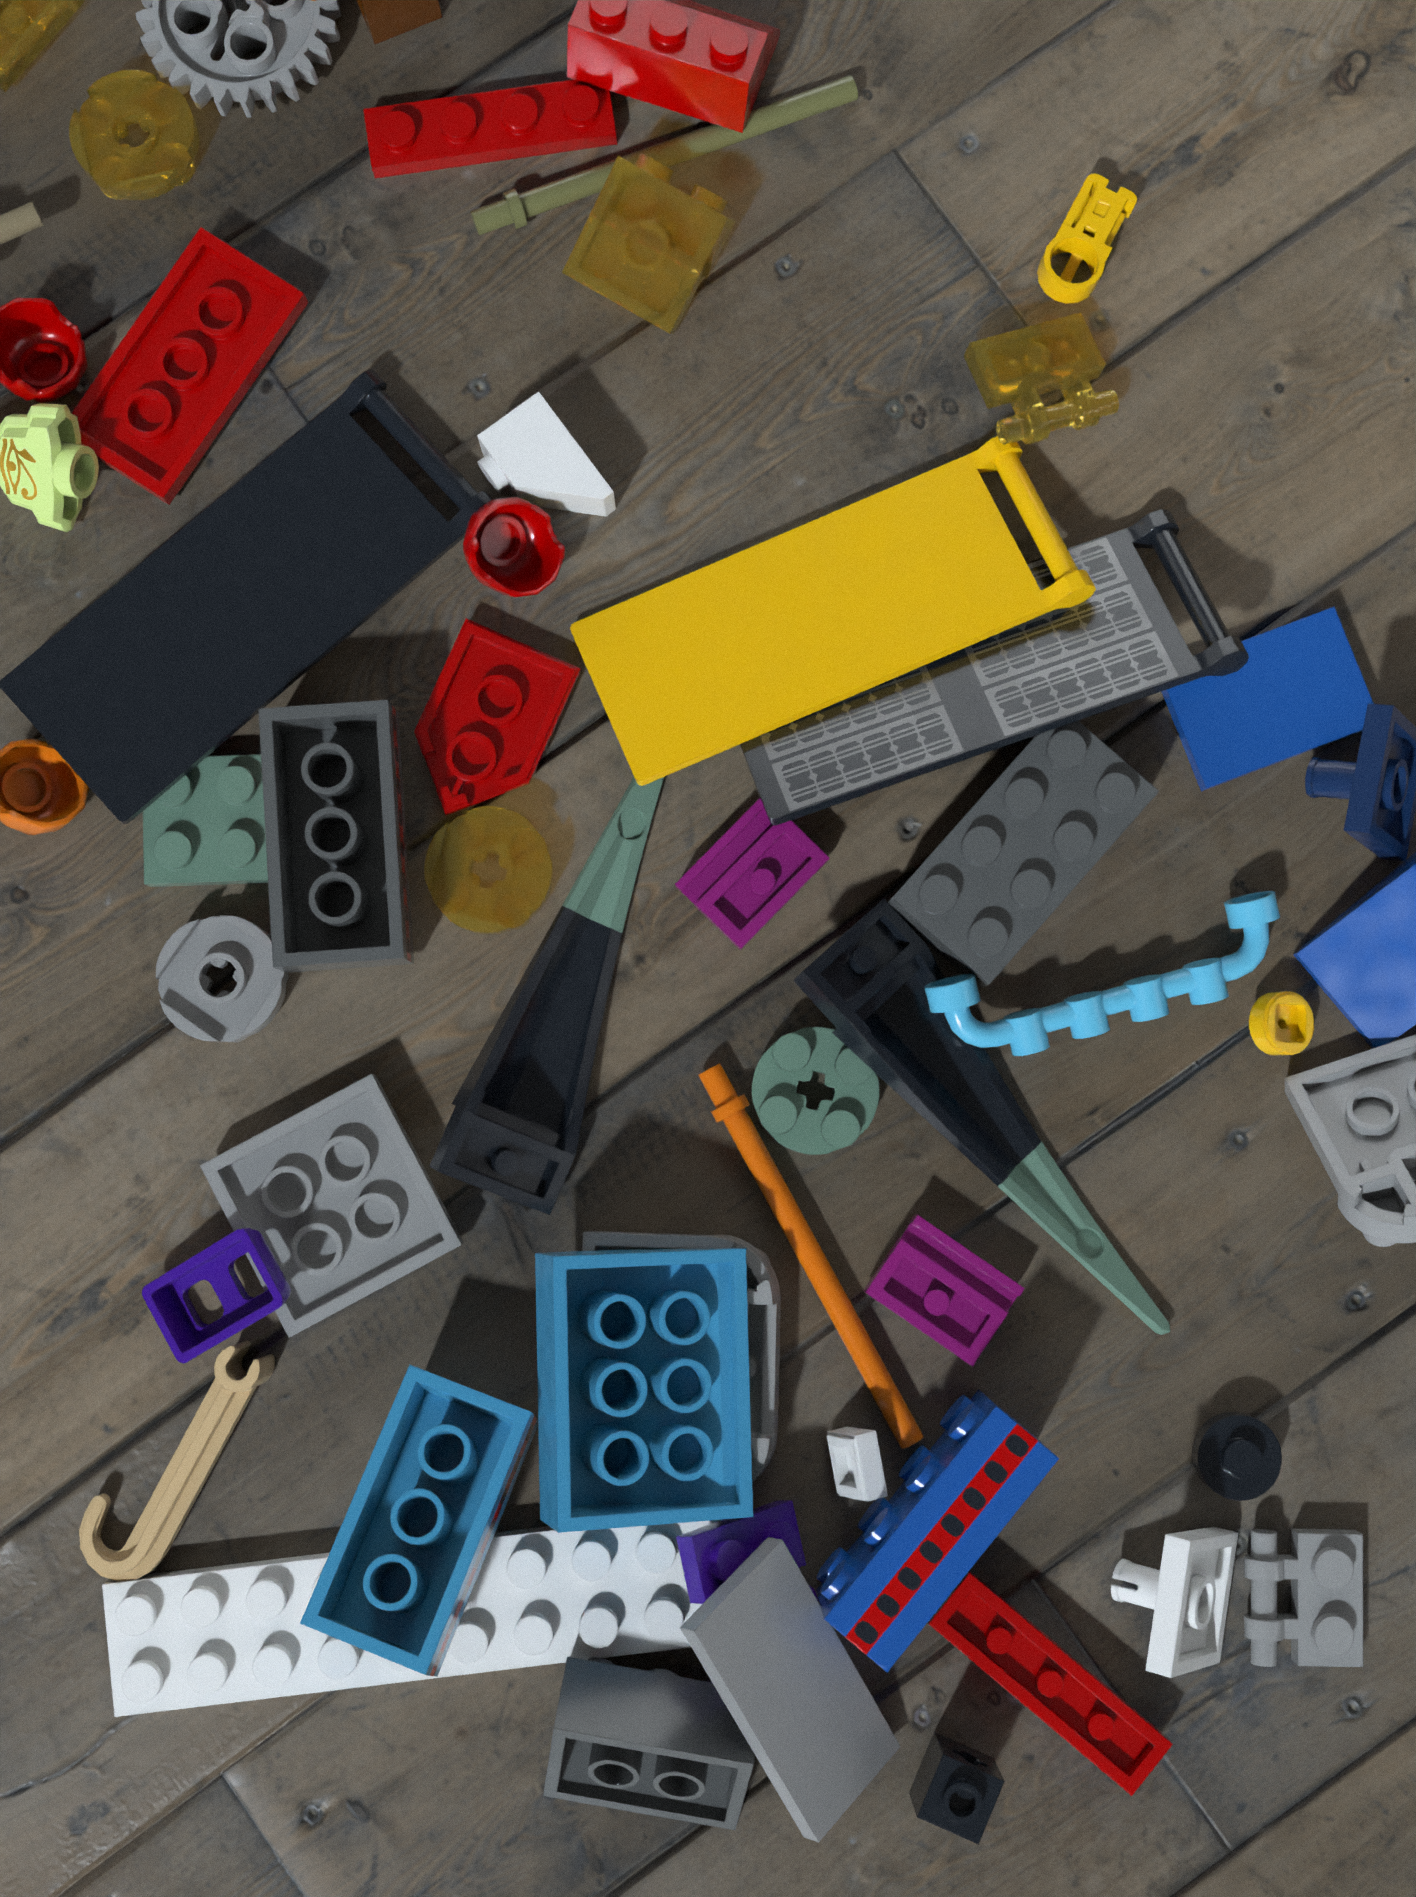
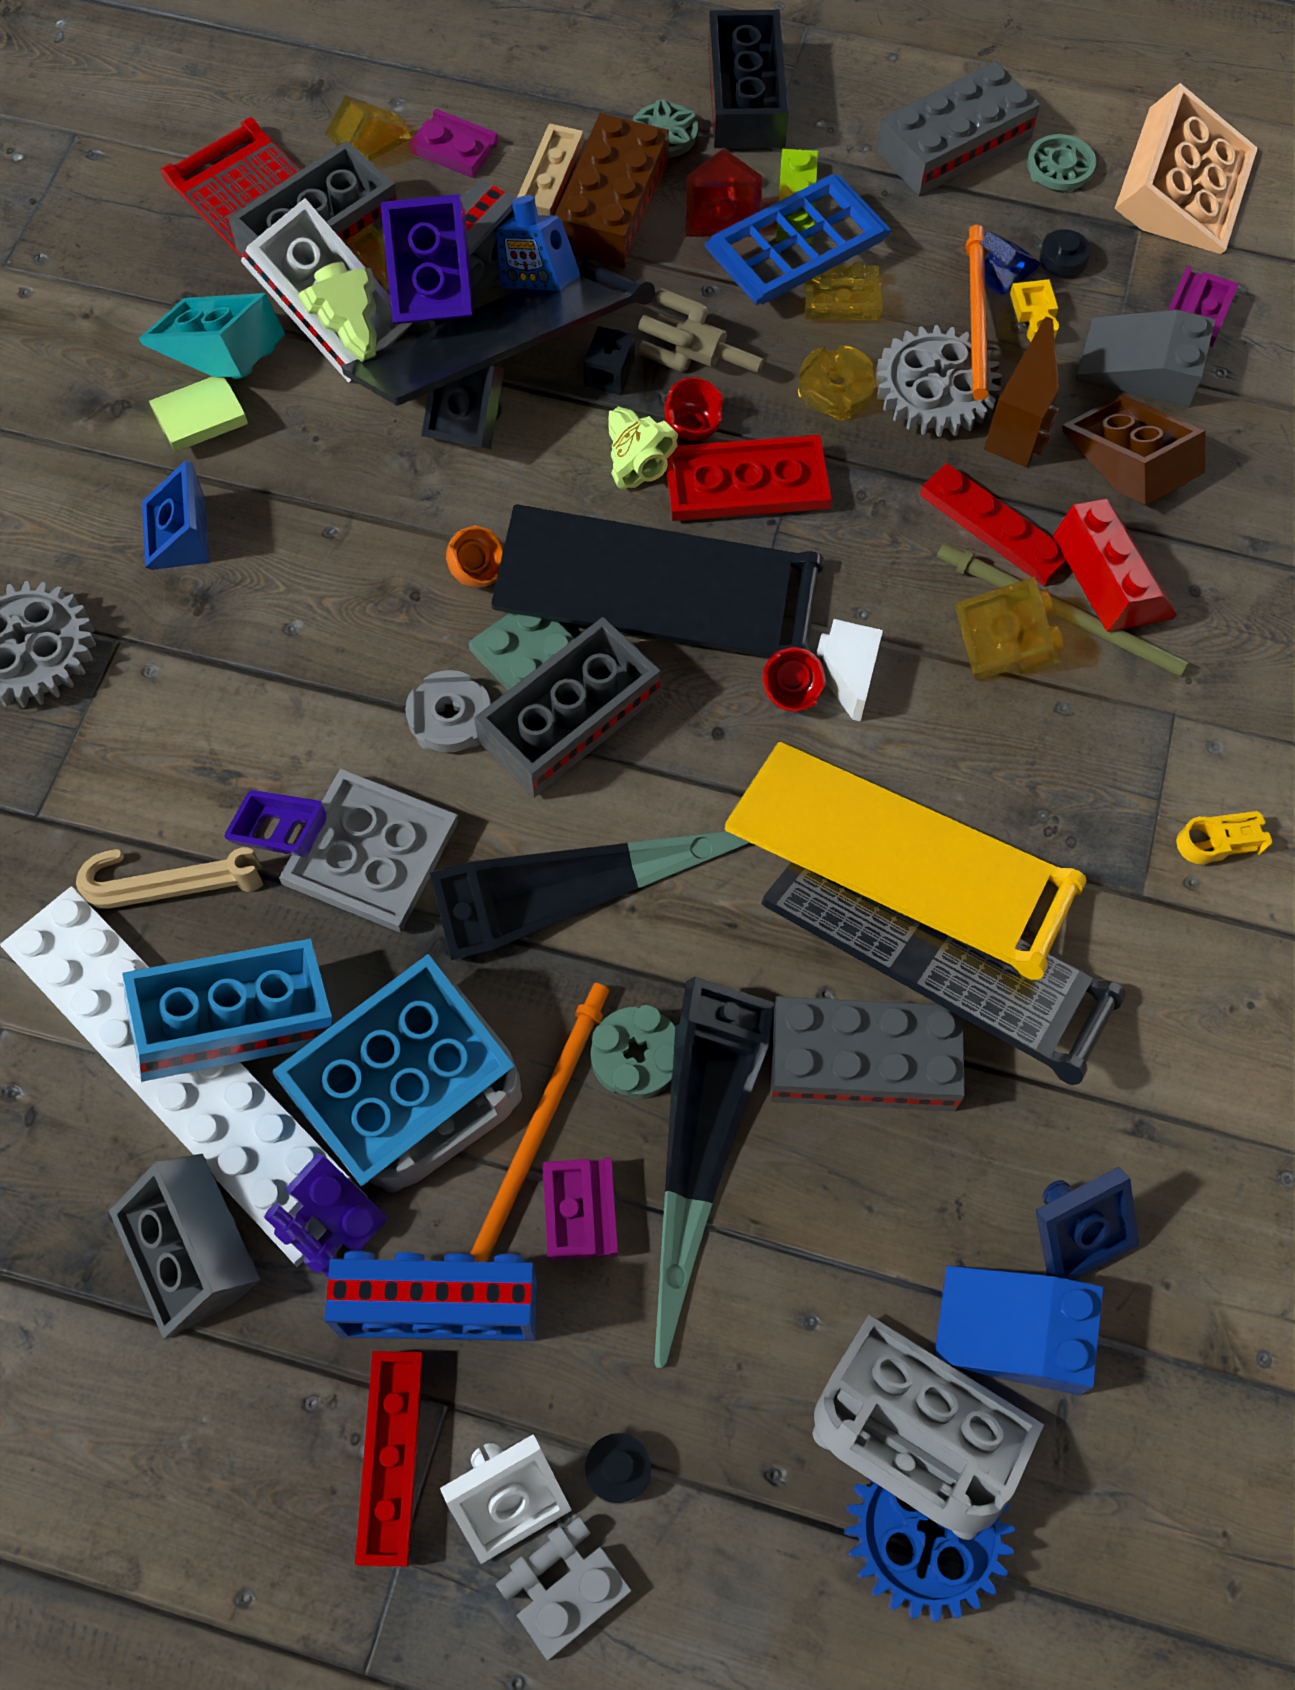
camera: 55 degrees right, 20 degrees down
(470, 840) = (610, 818): clear yellow plate -> none
(490, 715) = (697, 738): red tile -> none
(751, 874) = (727, 926): magenta plate -> none
(791, 1688) = (273, 1288): light grey tile -> none
(857, 1463) = (438, 1234): white tile -> none
(956, 1788) = (282, 1446): black brick -> none
(1039, 360) = (1134, 859): clear yellow plate -> none
(1088, 1011) = (843, 1190): medium azure bar -> none
(1281, 1023) = (898, 1286): yellow tile -> none
(1283, 702) = (1073, 1128): blue tile -> none

